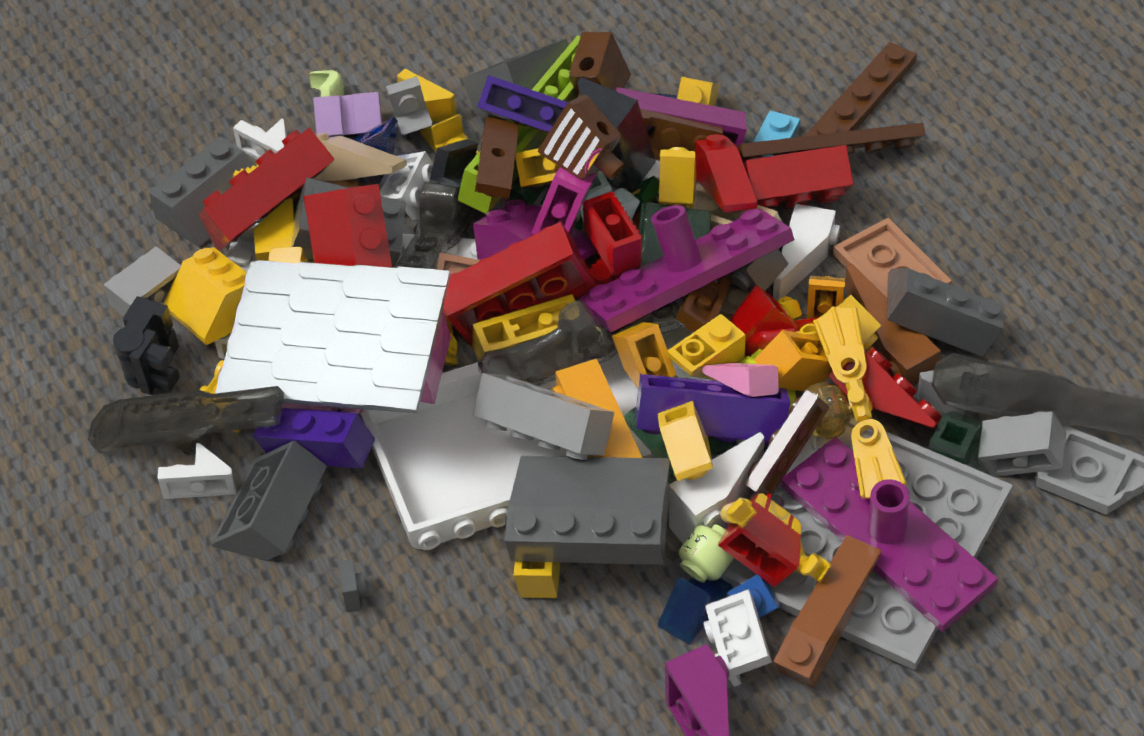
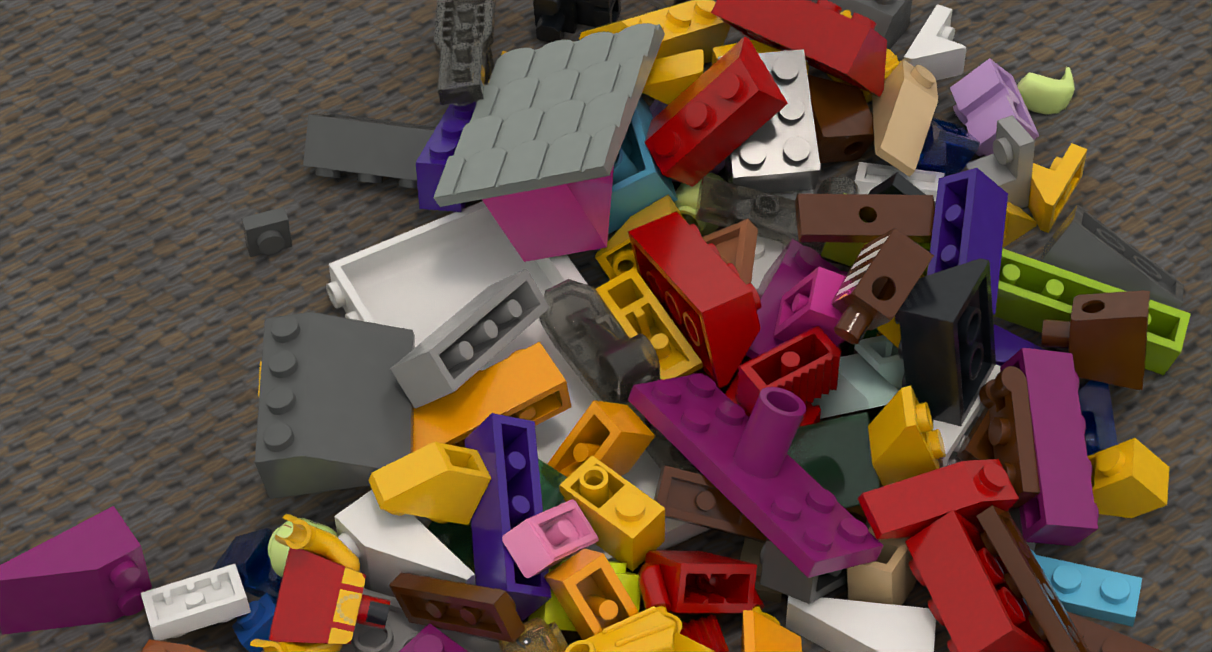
camera: 80 degrees right, 0 degrees up
(205, 478) = (414, 82): white slope -> none

